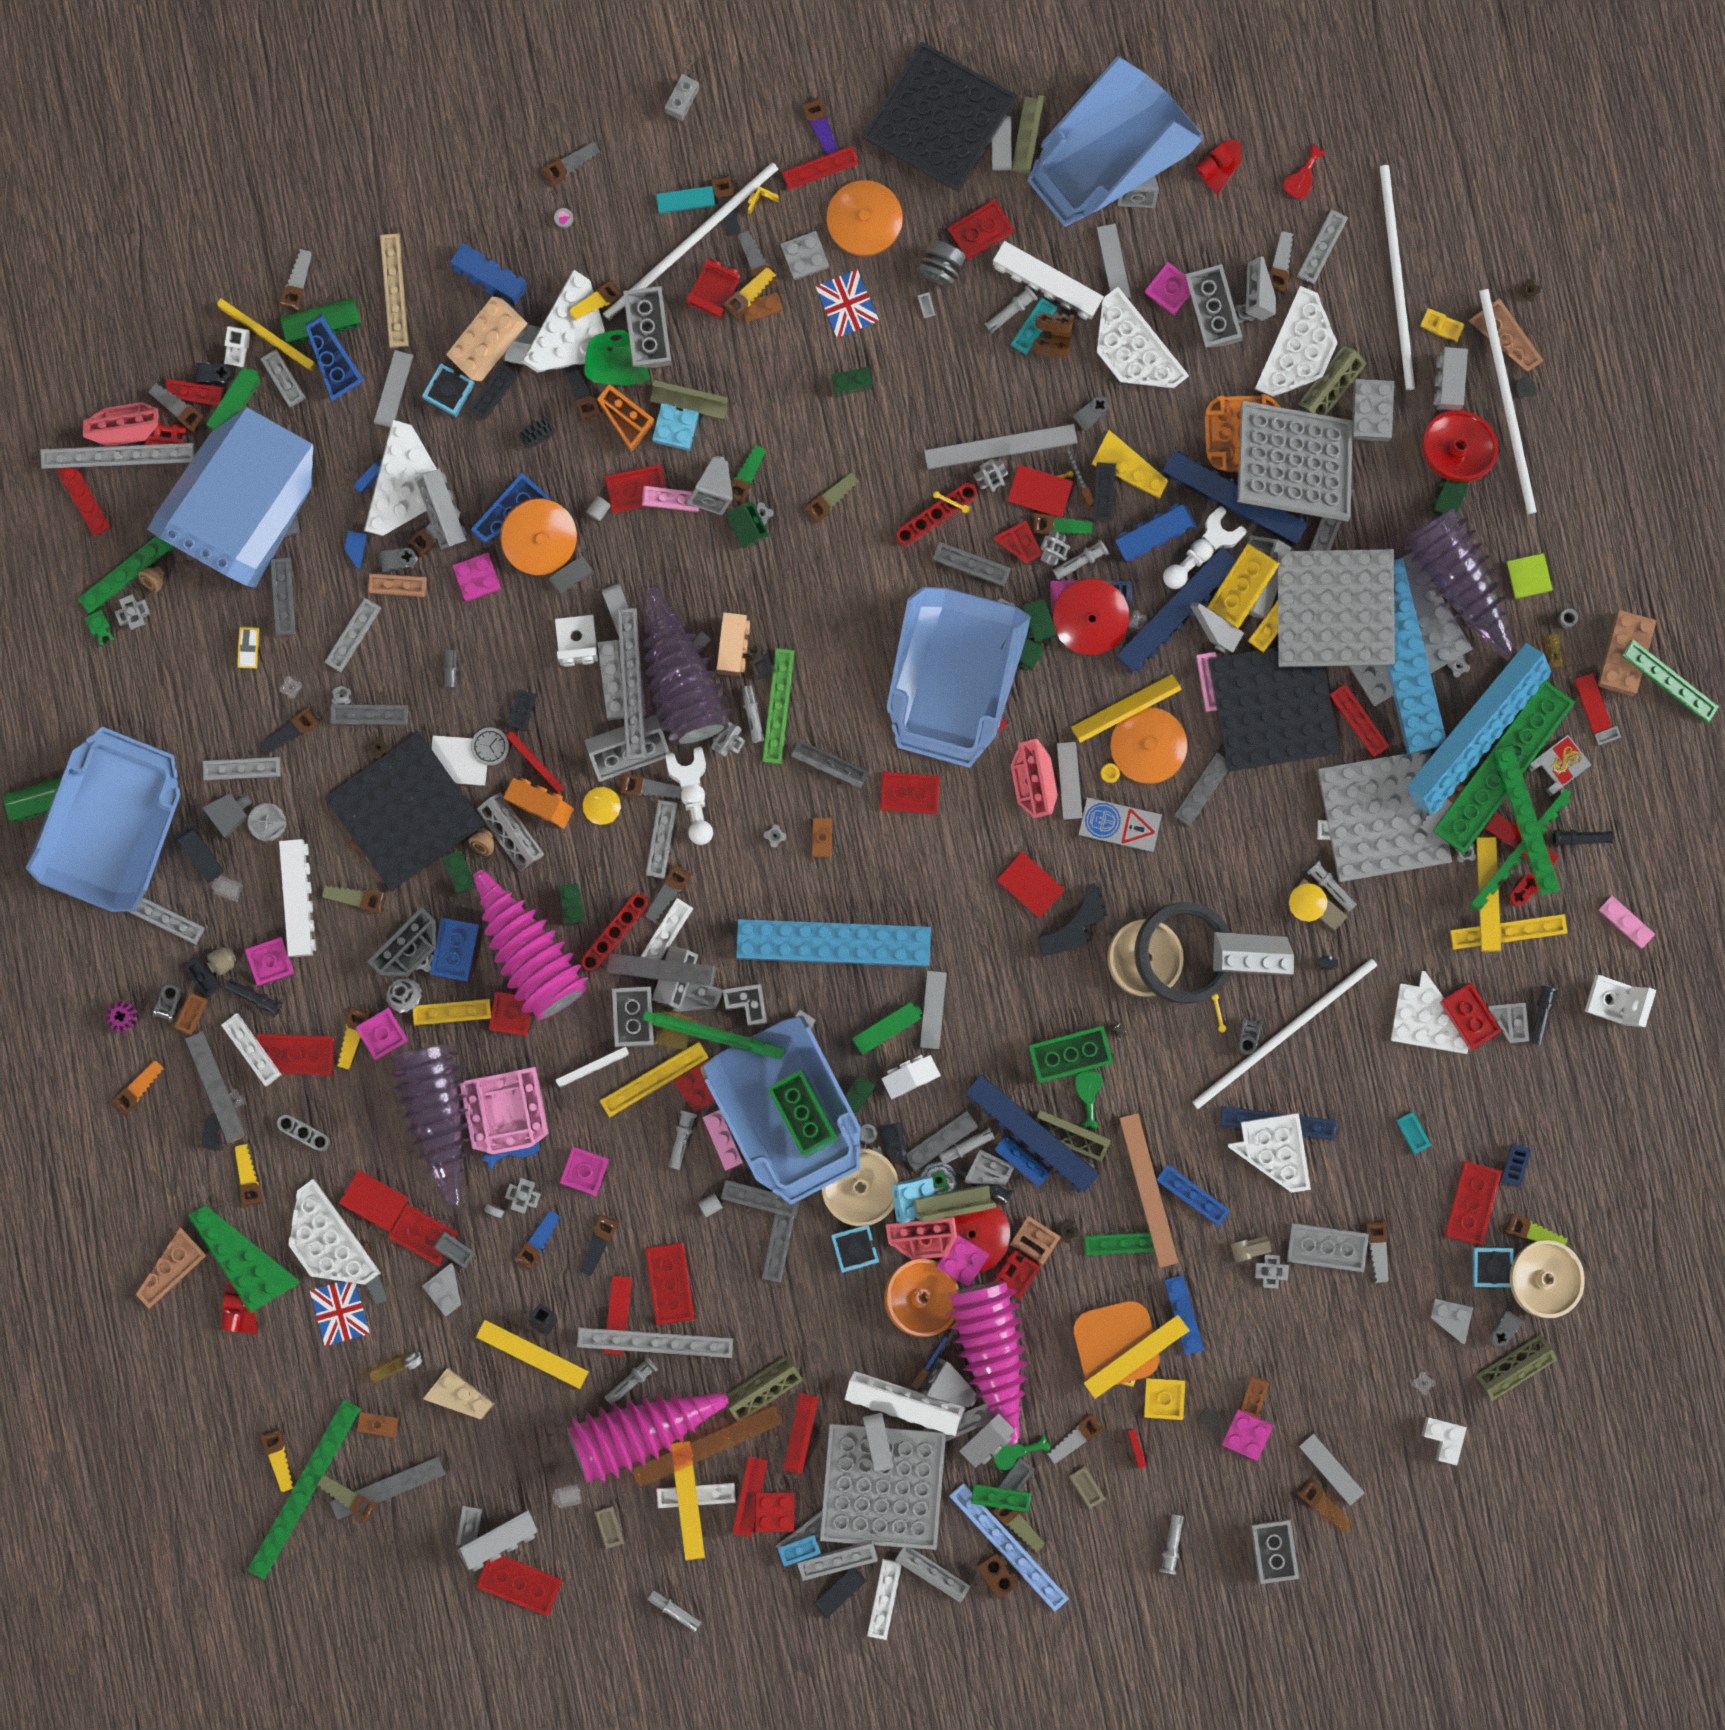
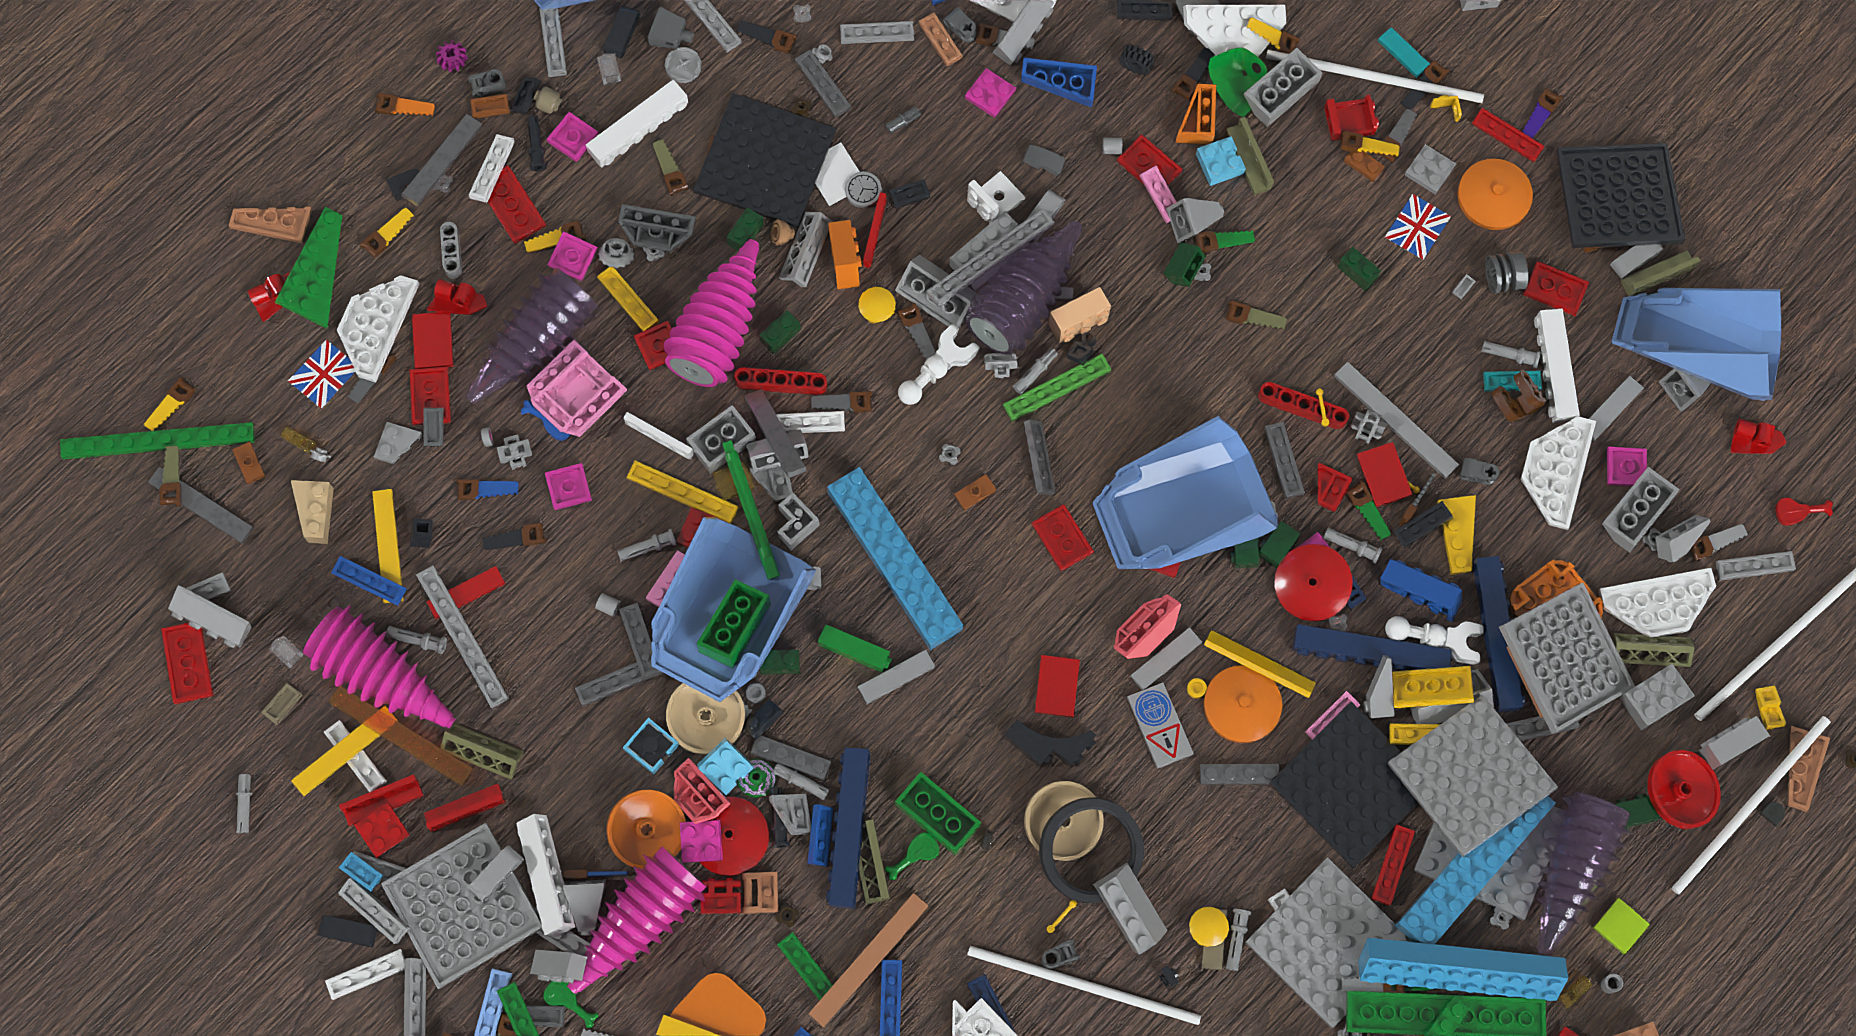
camera: 55 degrees right, 10 degrees down
(351, 1157) = (456, 299): none -> red panel
(454, 949) = (679, 268): blue plate -> none
(538, 536) = (1056, 113): orange dish -> none
(554, 1389) = (369, 580): none -> blue plate
(661, 839) = (883, 368): light grey tile -> none
(669, 1283) = (520, 617): red tile -> none
(910, 1076) = (828, 693): white brick -> none
(953, 1203) = (743, 799): olive fence -> none
(1051, 548) = (1344, 513): light grey piece -> none

